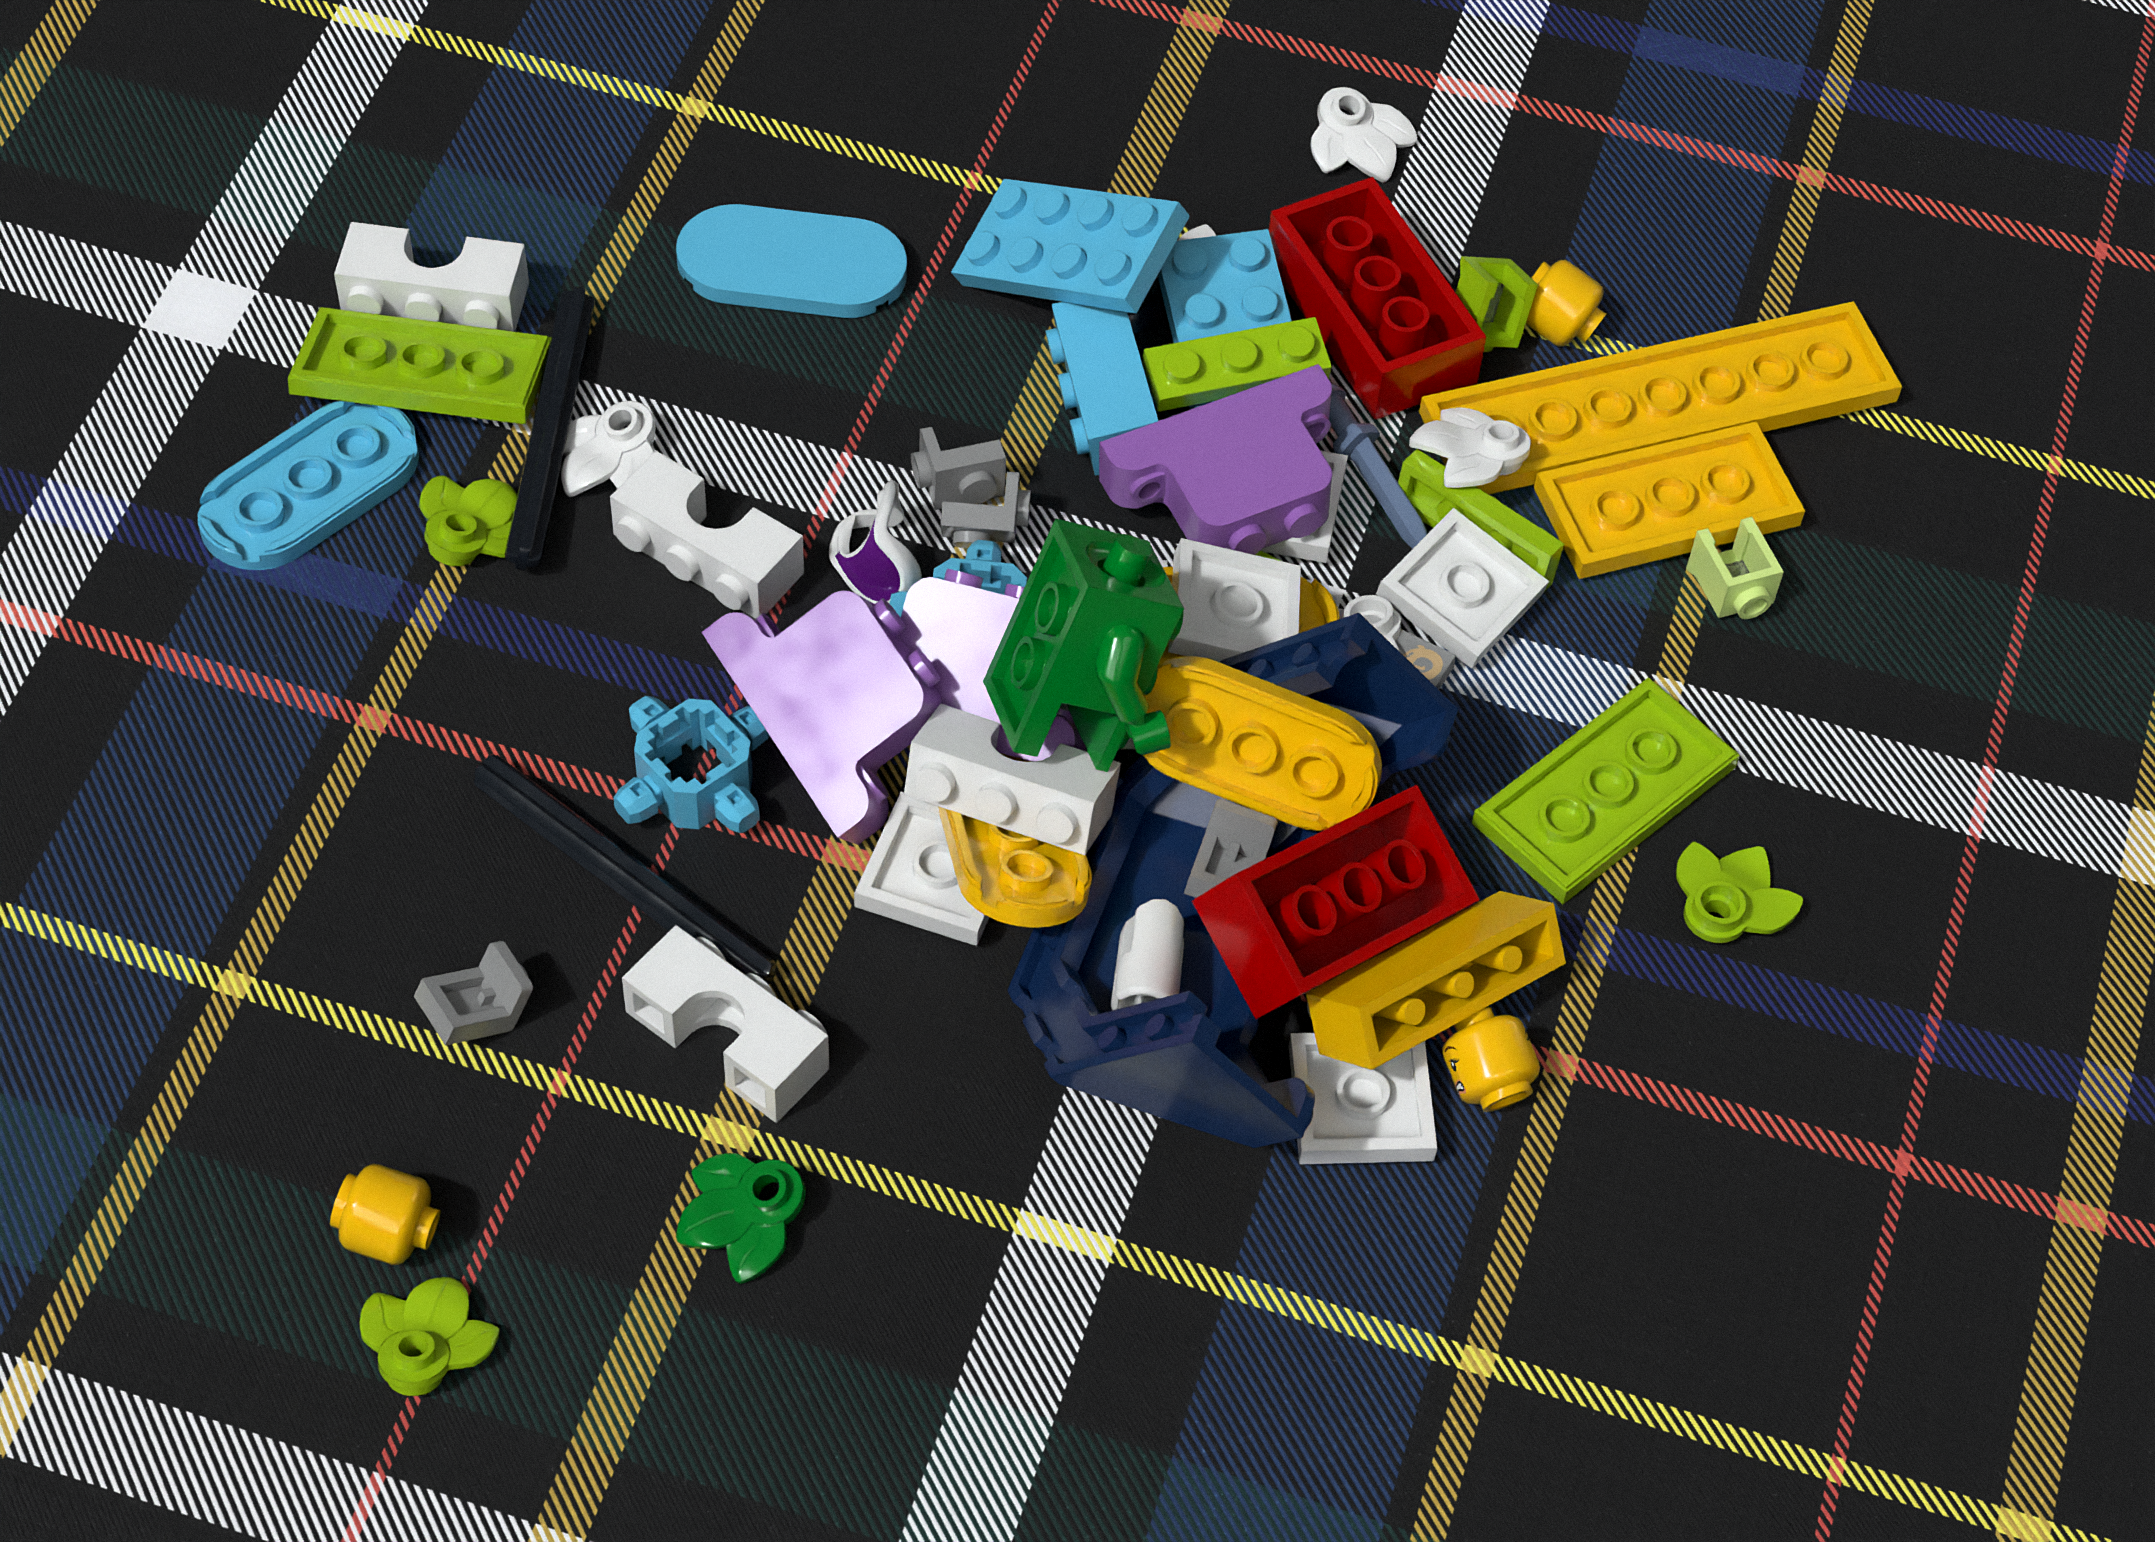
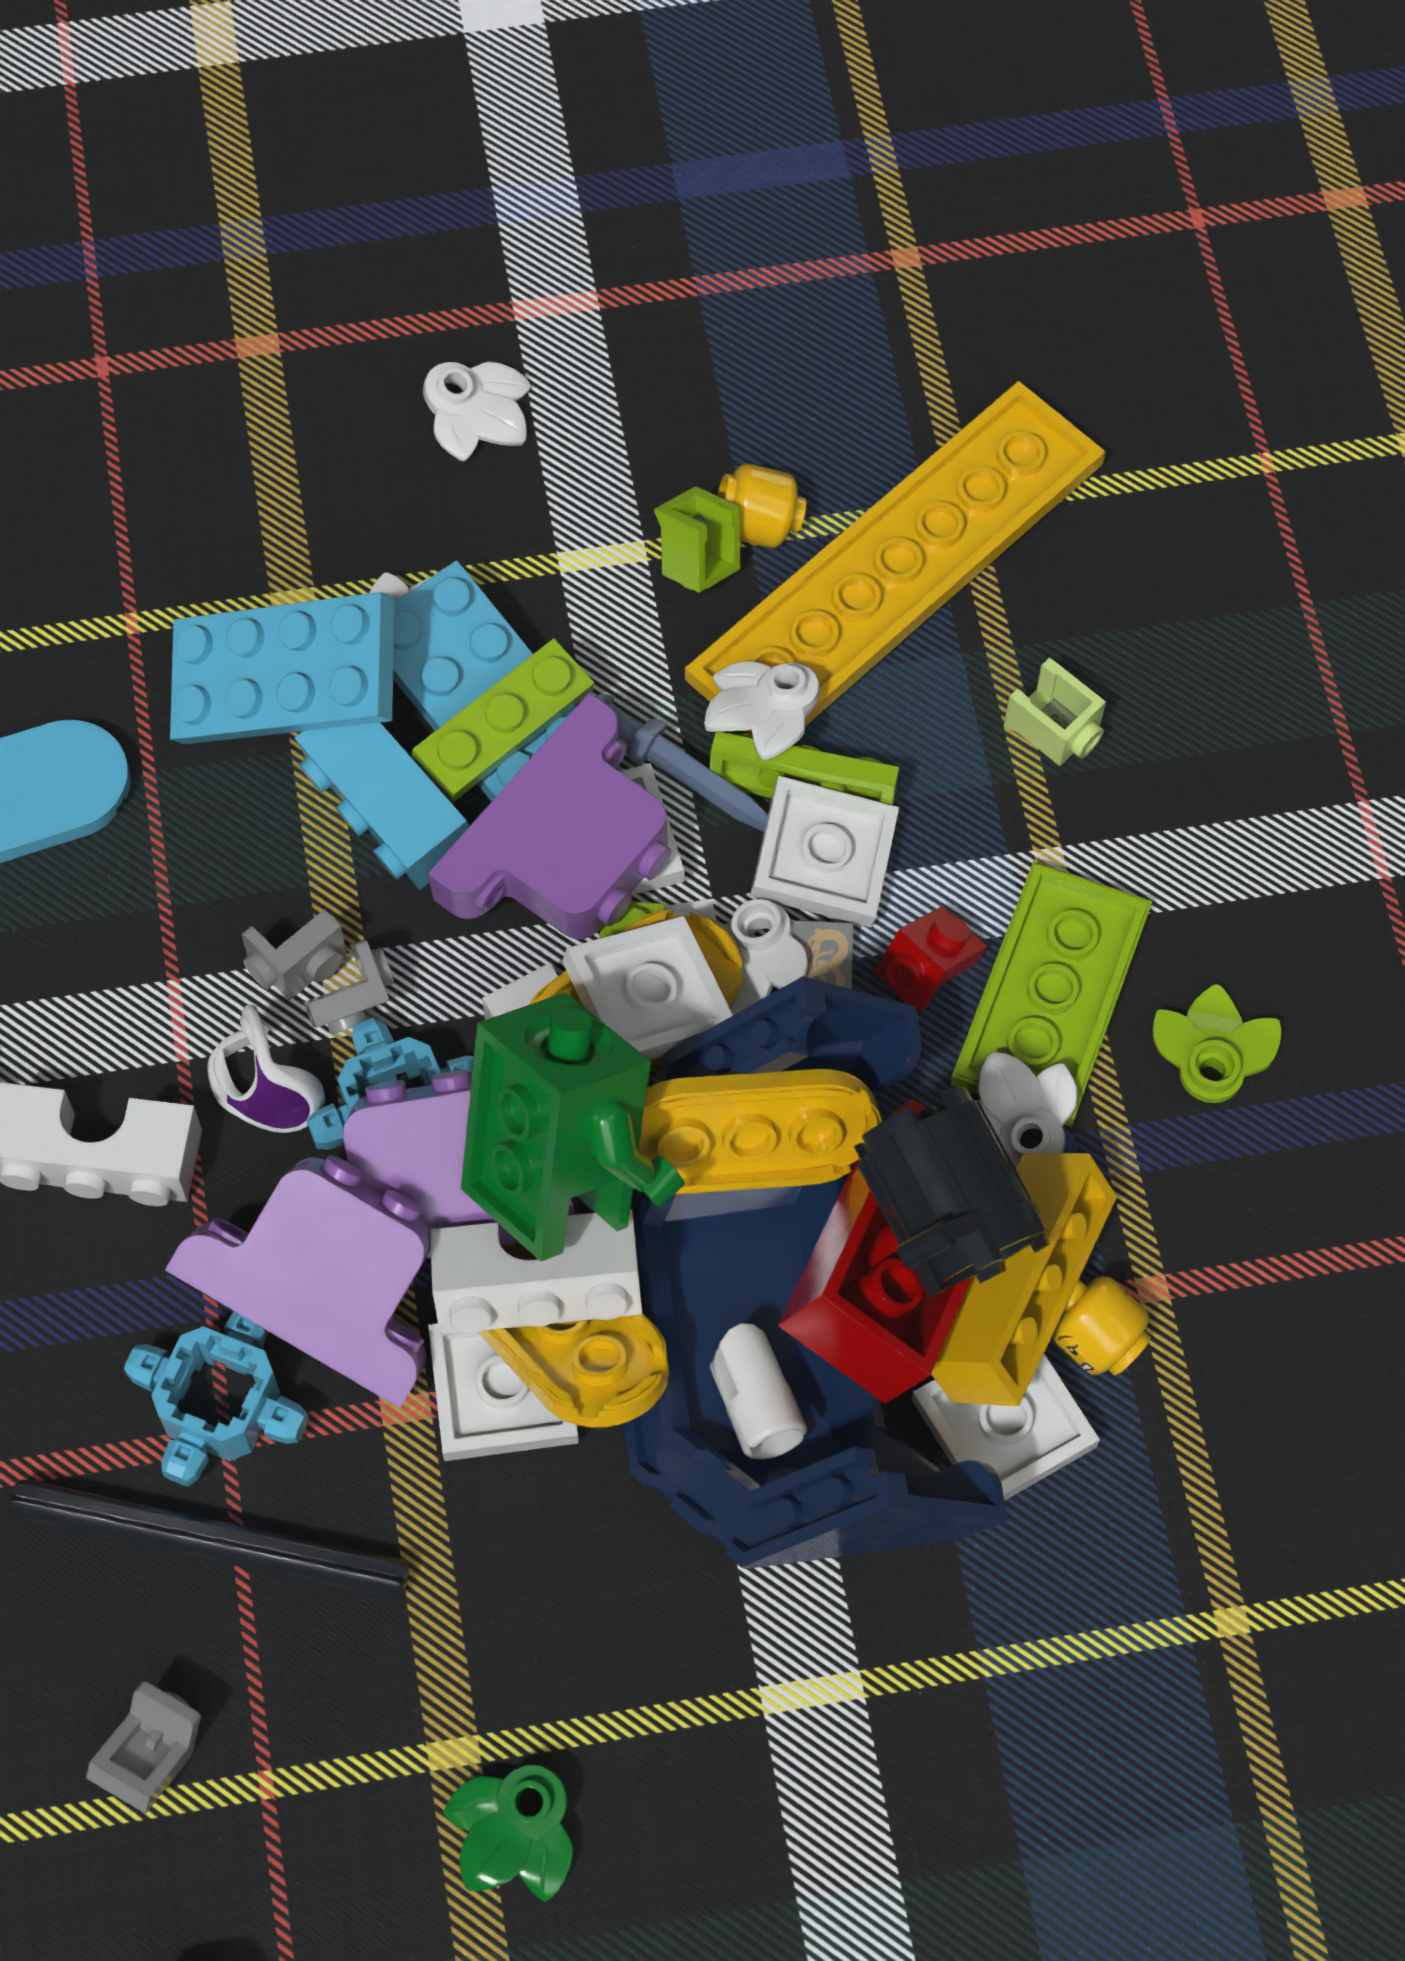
camera: 25 degrees left, 10 degrees up
(691, 986) = (340, 1627): white arch -> none
(1231, 843) = (768, 1242): light grey bracket -> none
(1375, 297) = (590, 583): red brick -> none
(1397, 852) = (949, 1192): none -> black container
(1508, 704) = (927, 956): none -> red bracket
(1519, 856) = (1021, 1102): none -> white plate
(1658, 497) = (956, 667): yellow plate -> none

